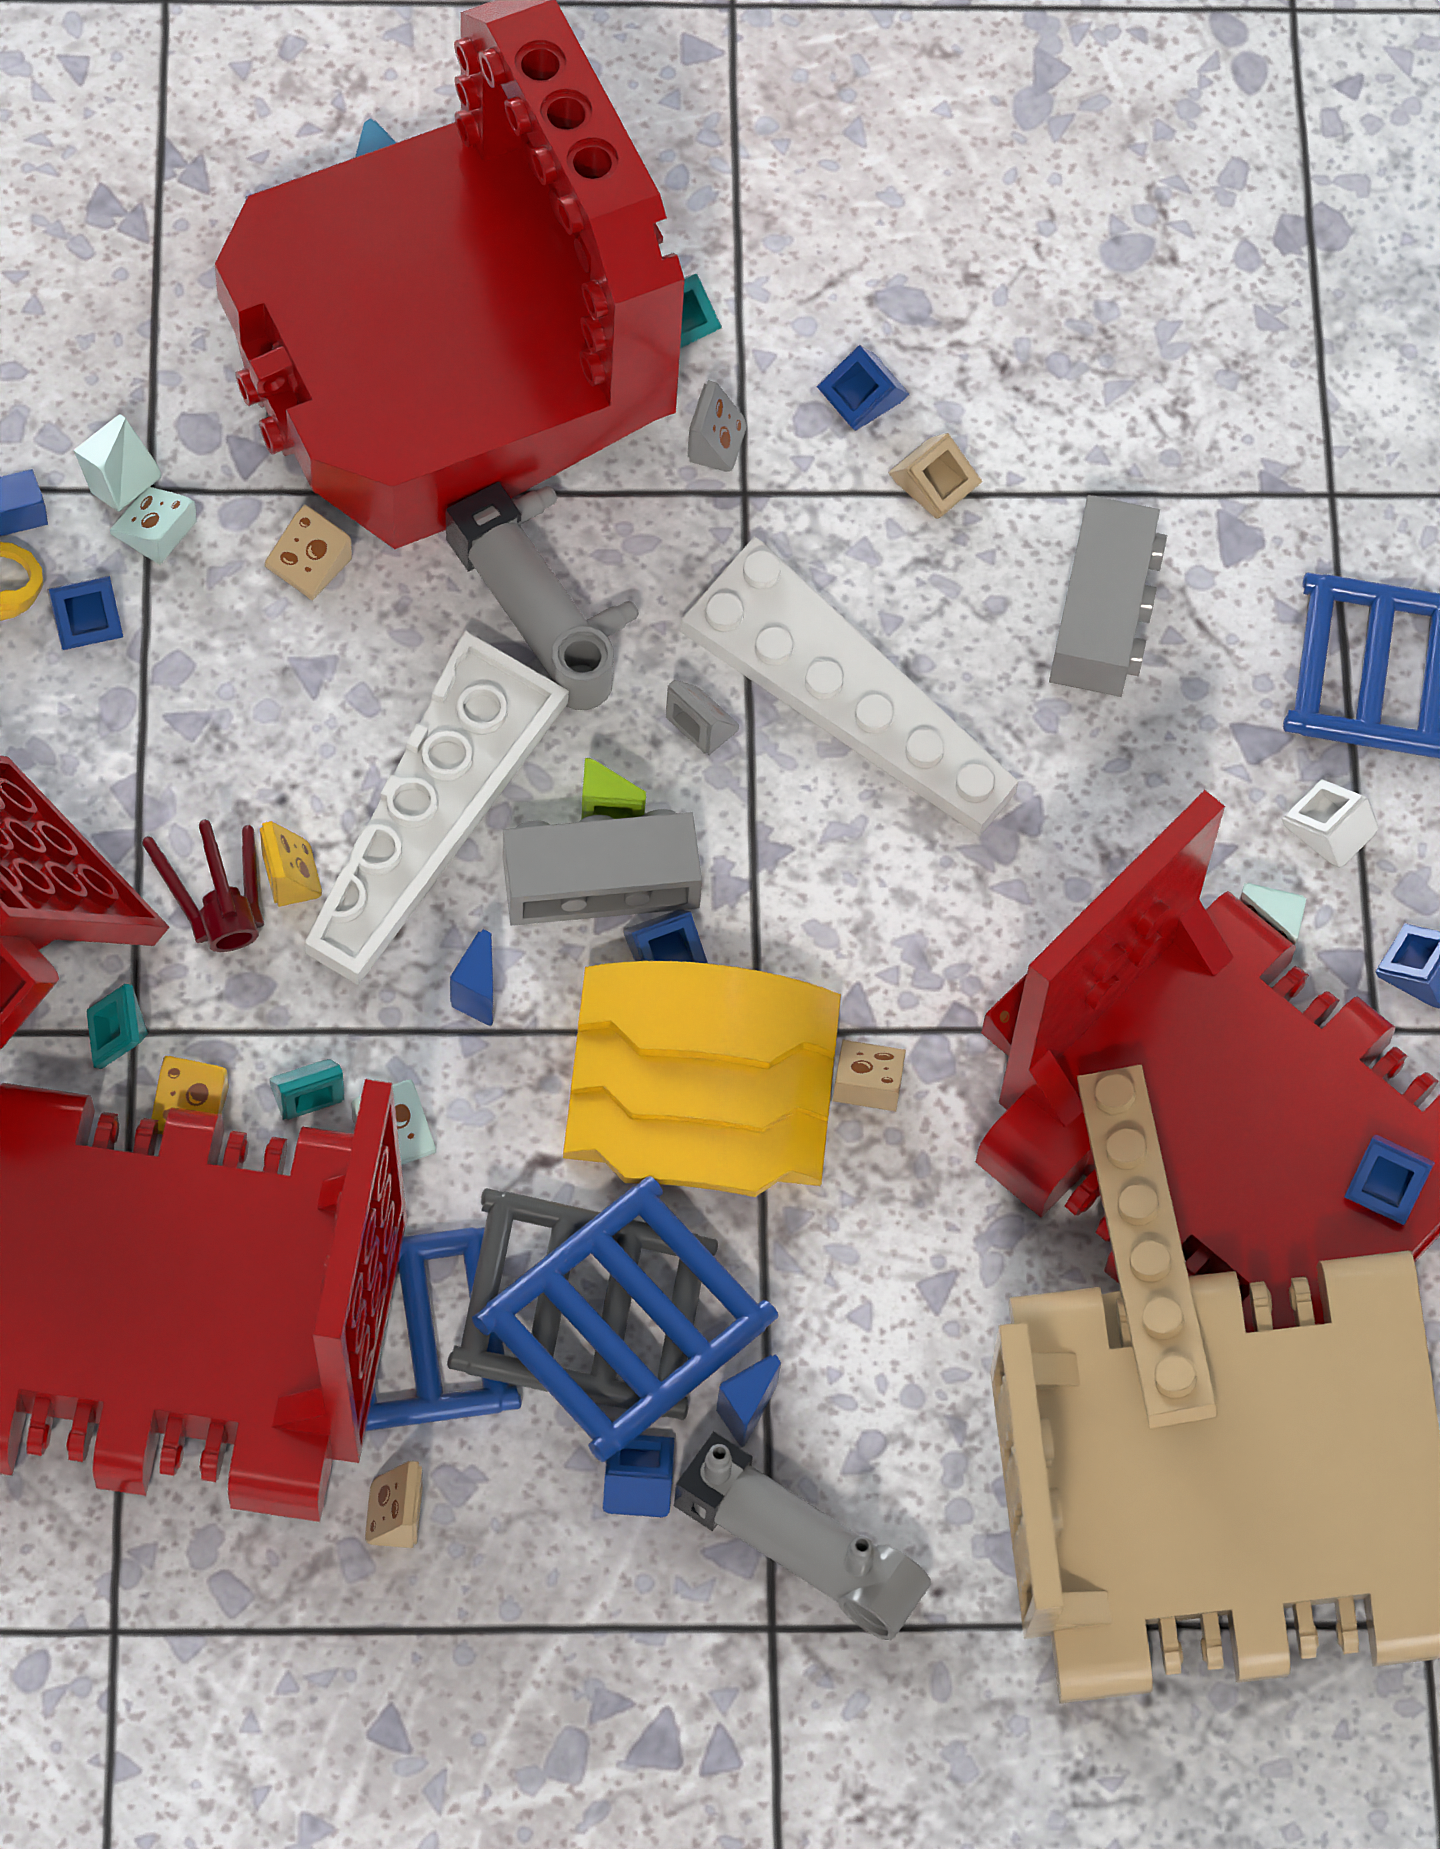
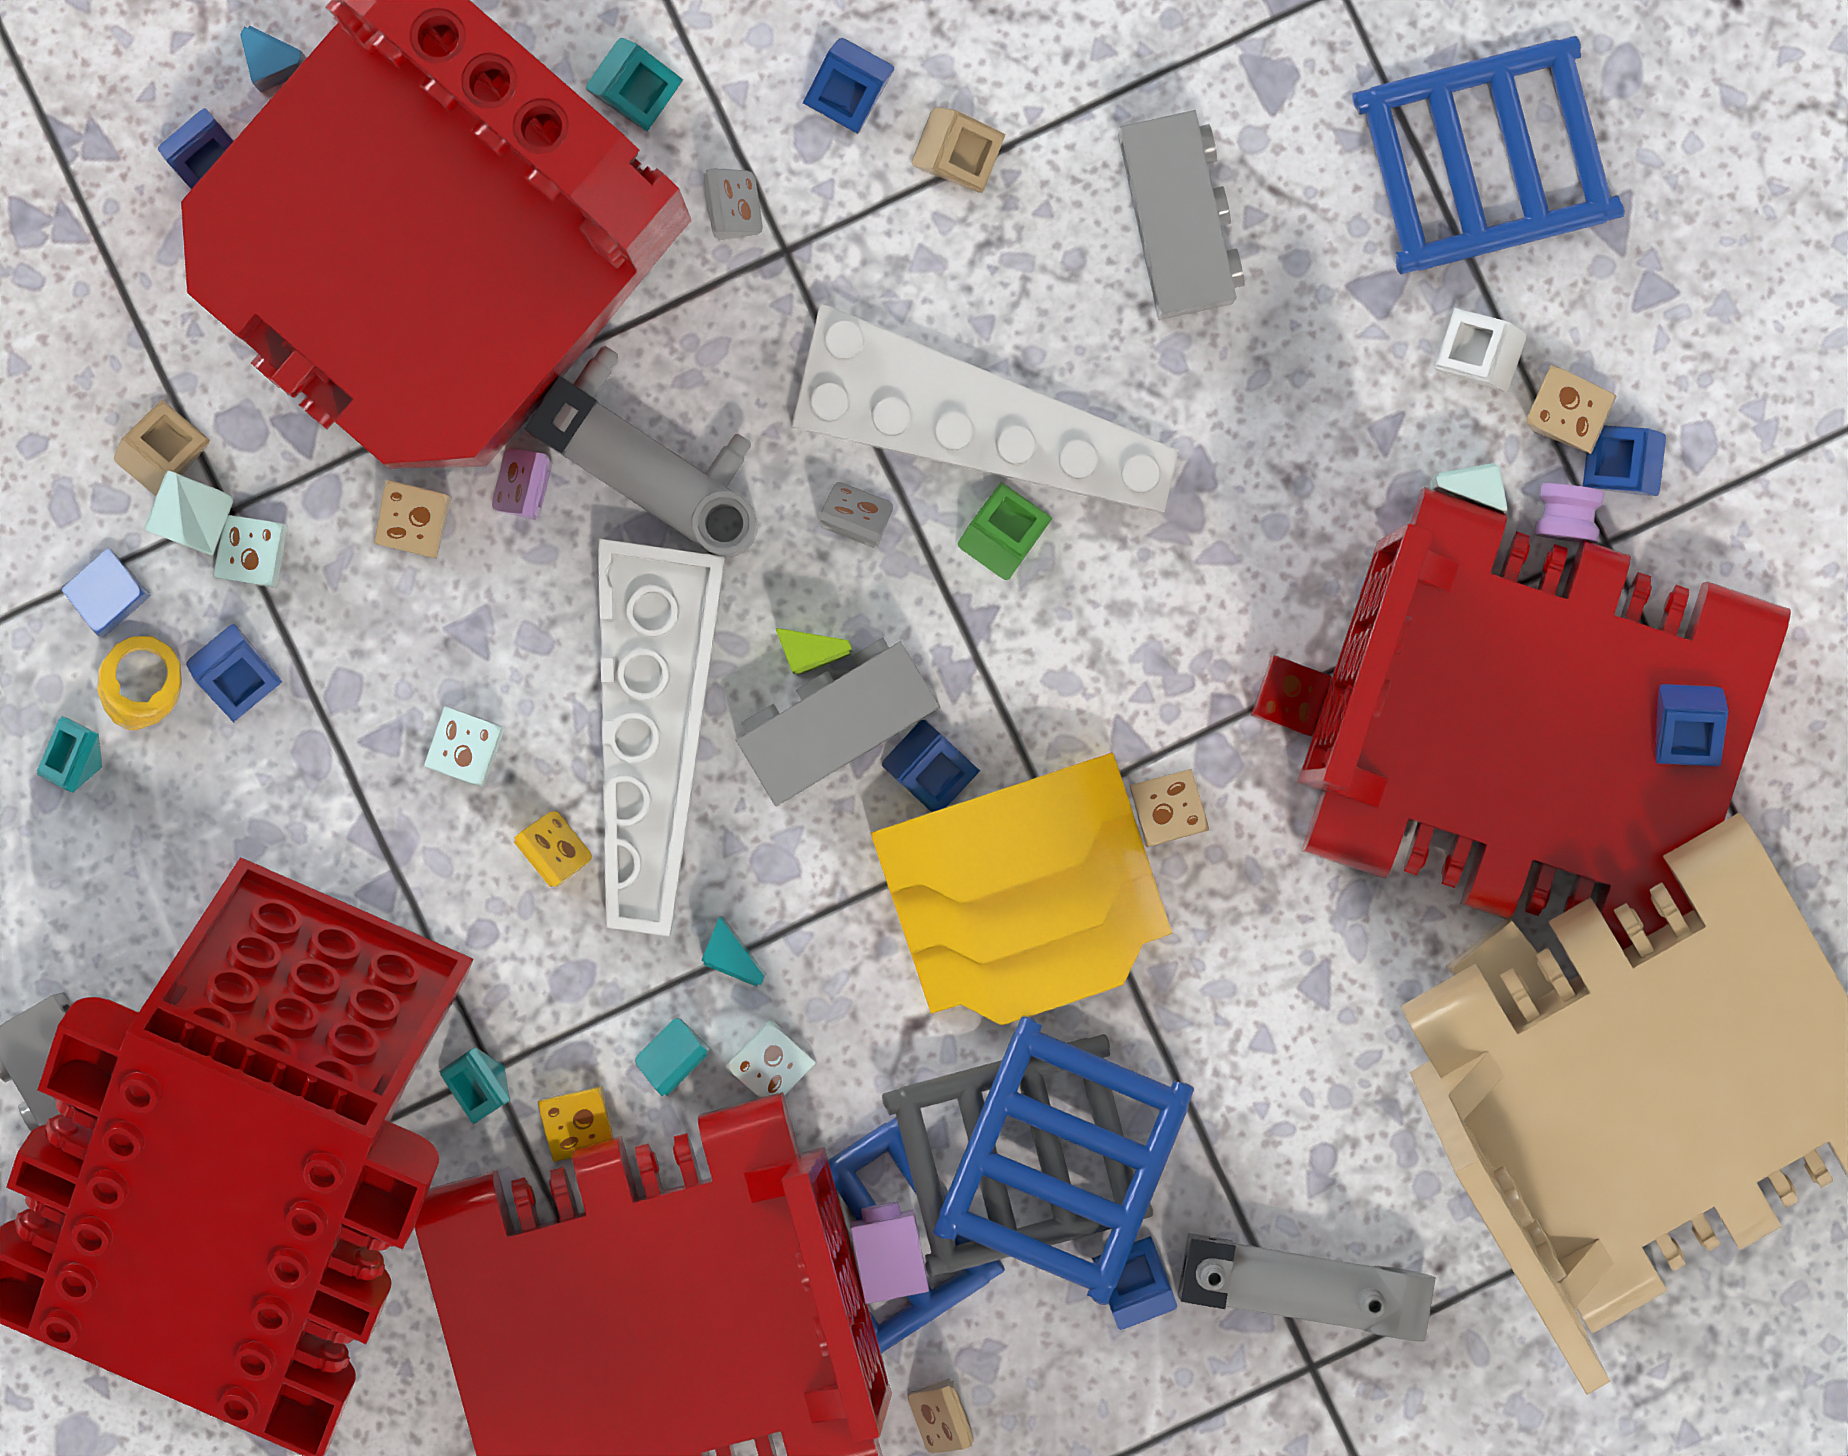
camera: 20 degrees left, 25 degrees up
(127, 397) = (159, 444): none -> tan slope
(227, 917) = (521, 928): dark red plant -> none
(258, 753) = (464, 747): none -> light aqua slope
(403, 1018) = (730, 955): none -> teal slope
(420, 1324) = (889, 1253): none -> lavender brick
(423, 569) = (522, 483): none -> lavender slope
(473, 980) = (776, 890): blue slope -> none
(746, 1396) = (1201, 1178): blue slope -> none
(827, 786) = (1004, 531): none -> bright green slope
(1146, 1247) = (1508, 918): tan plate -> none
(1355, 972) = (1569, 512): none -> lavender wheel
(1390, 894) = (1570, 409): none -> tan slope

